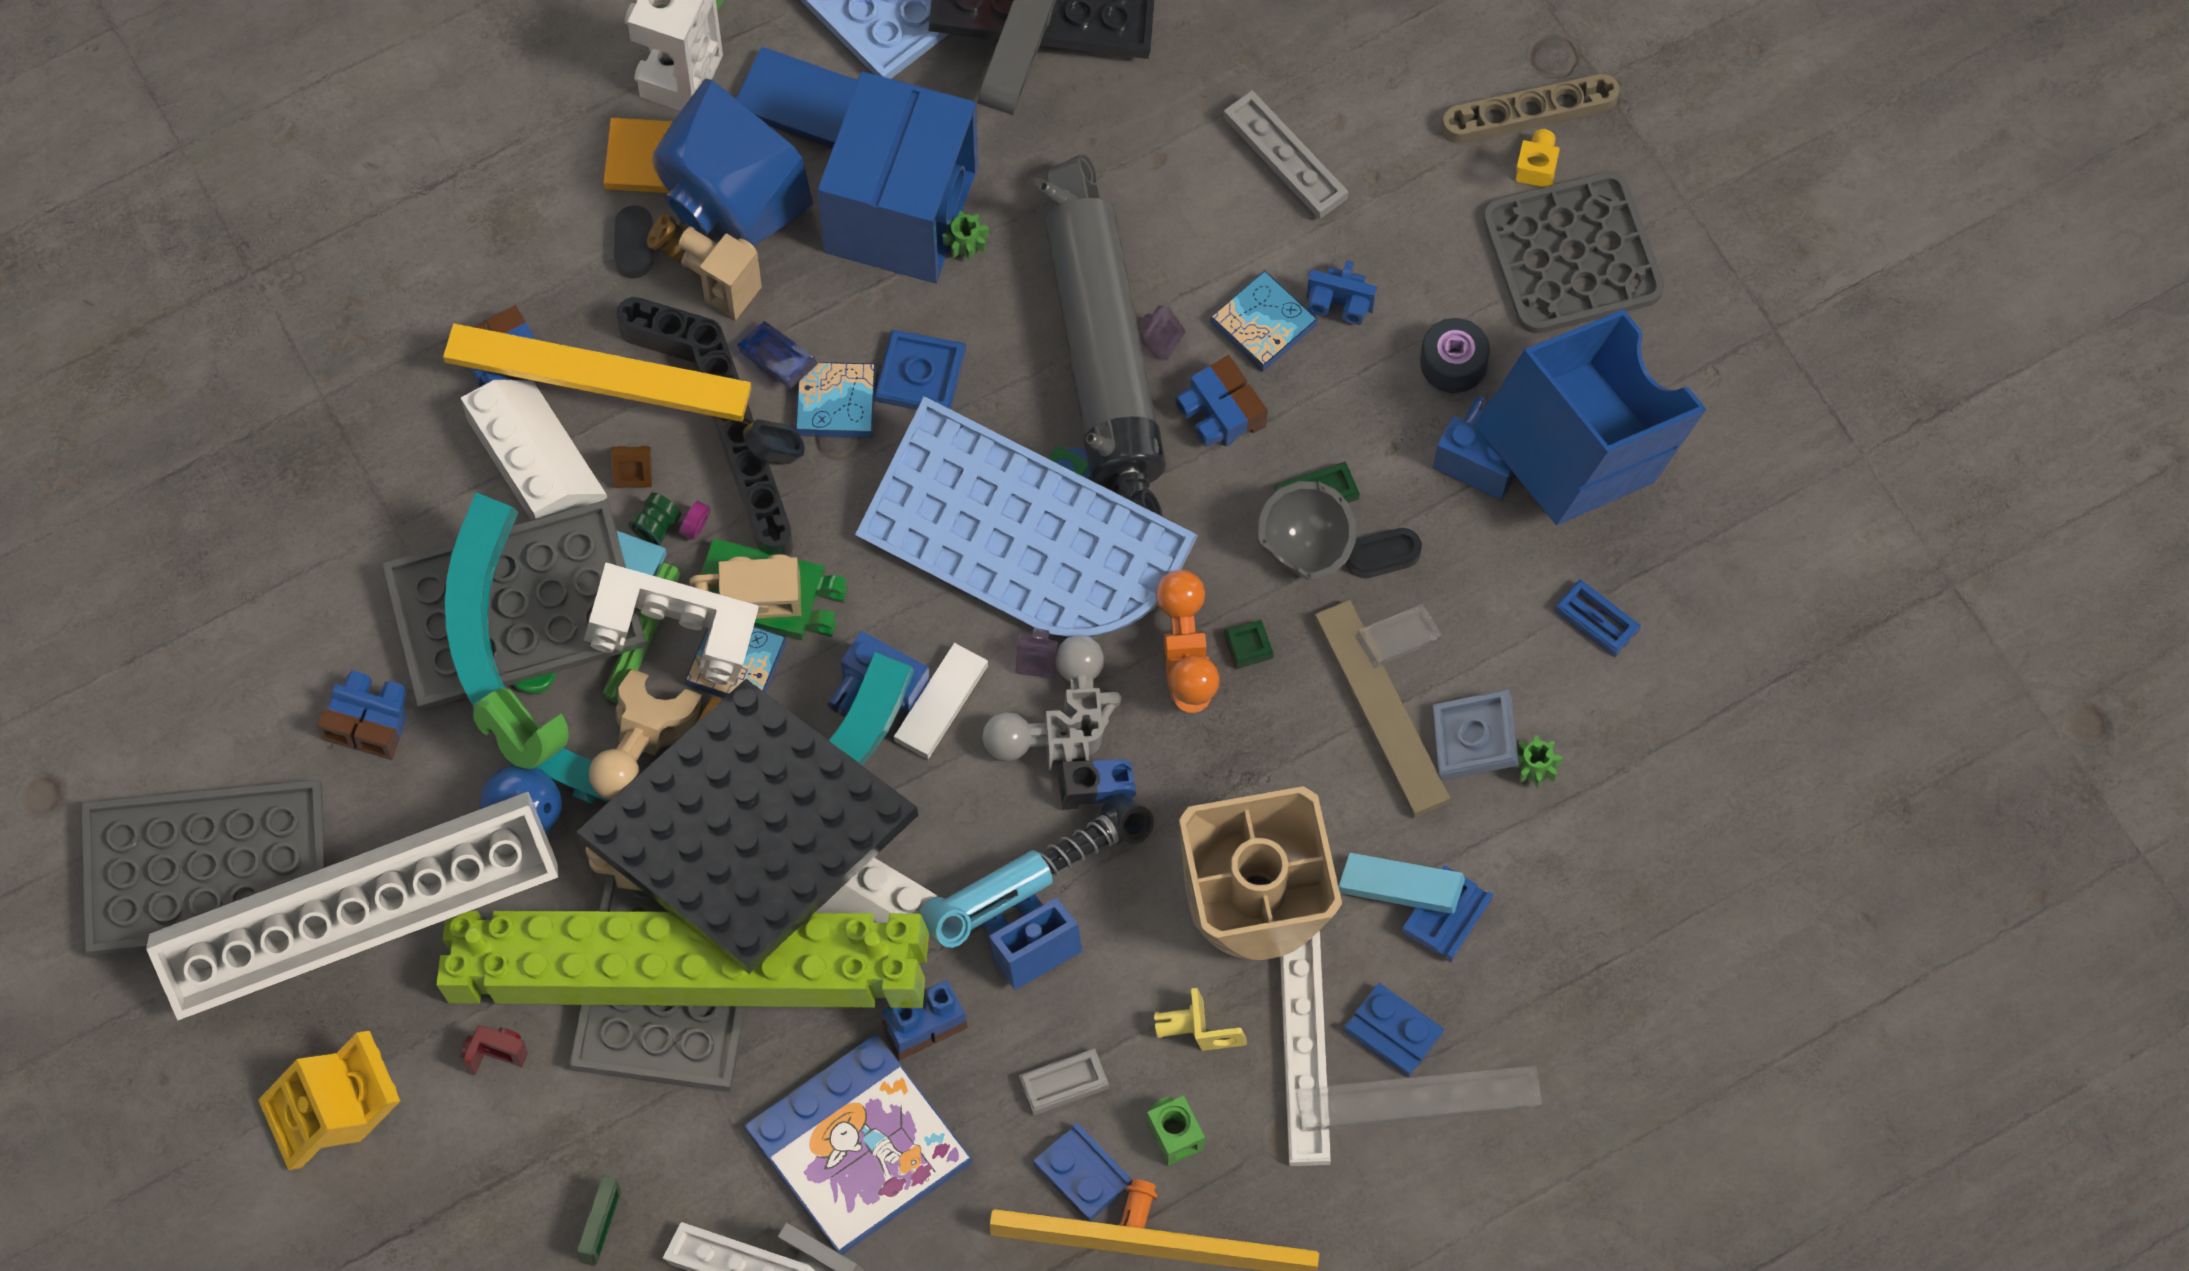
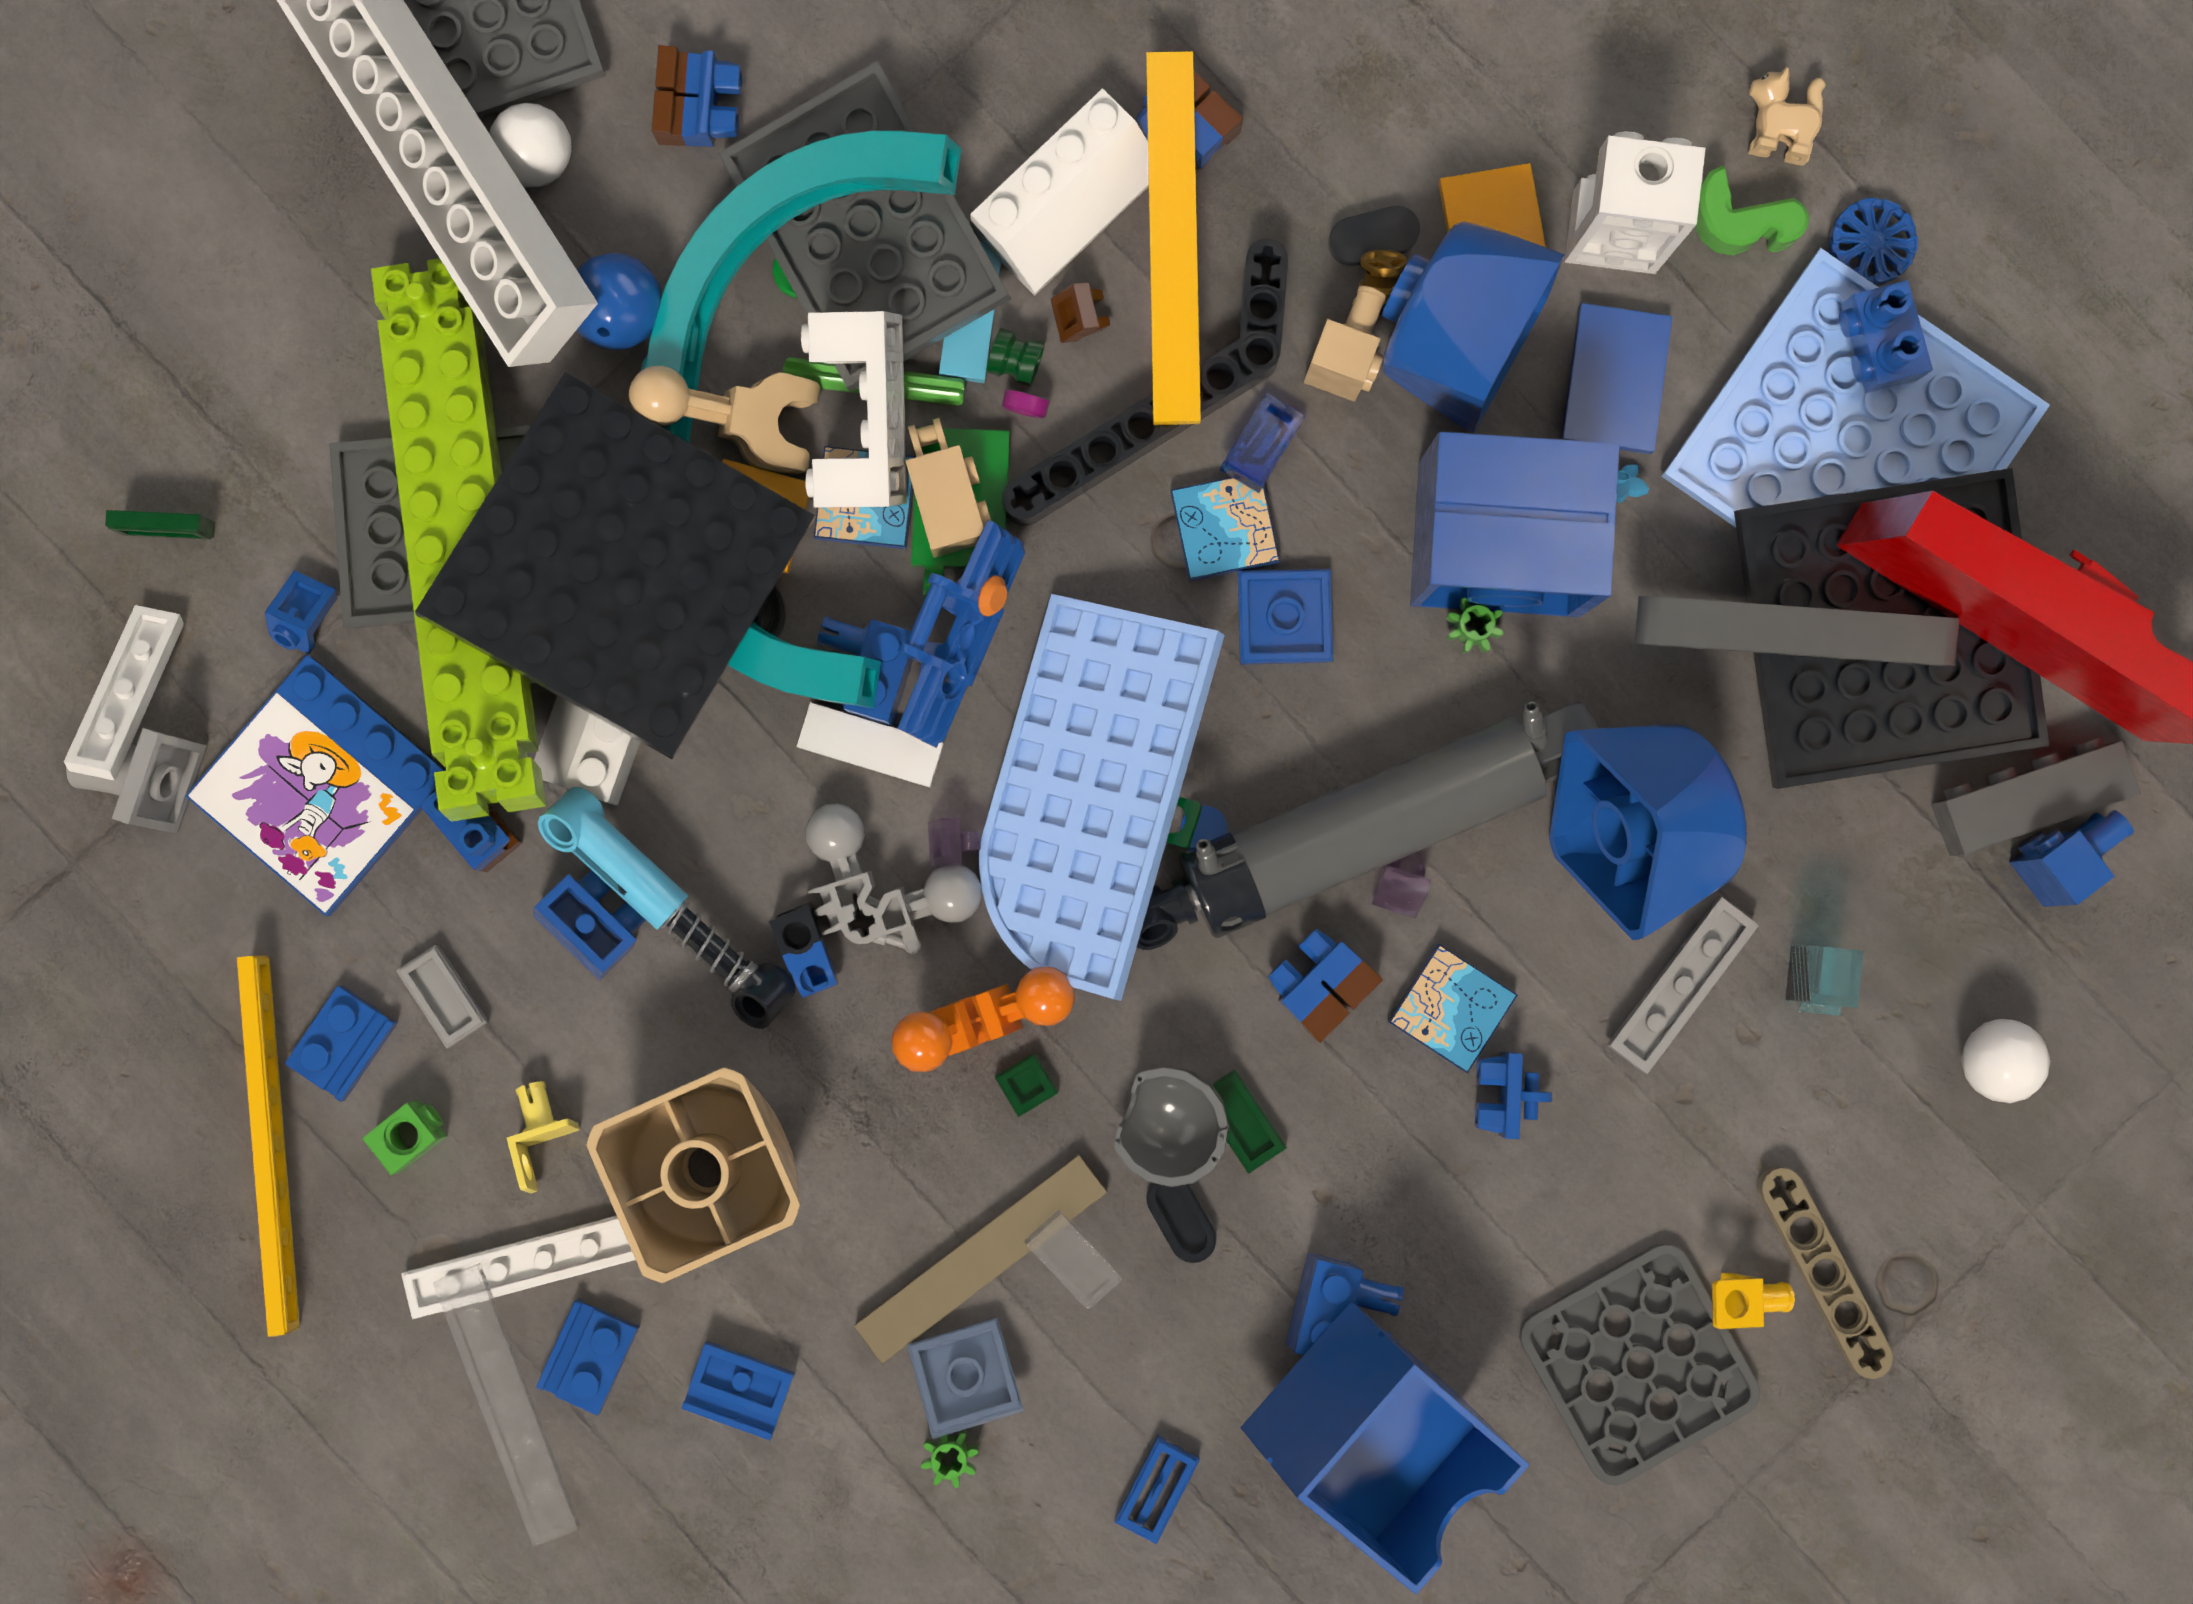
camera: 75 degrees right, 20 degrees up
(329, 1100) = (222, 192): yellow bracket -> none
(362, 834) = (532, 143): none -> white piece
(499, 1044) = (337, 357): dark red bracket -> none
(517, 731) = (679, 271): bright green animal -> none
(707, 1123) = (298, 611): none -> blue bracket
(773, 441) = (1139, 468): black tile -> none
(850, 588) = (978, 610): none -> blue piece
(1138, 1203) = (311, 1114): orange pin -> none
(1153, 135) = (1646, 821): none -> blue piece
(1303, 51) = (1824, 978): none -> clear light blue brick
(1401, 883) = (757, 1331): medium azure tile -> none
(1454, 369) = (1443, 1239): black wheel -> none

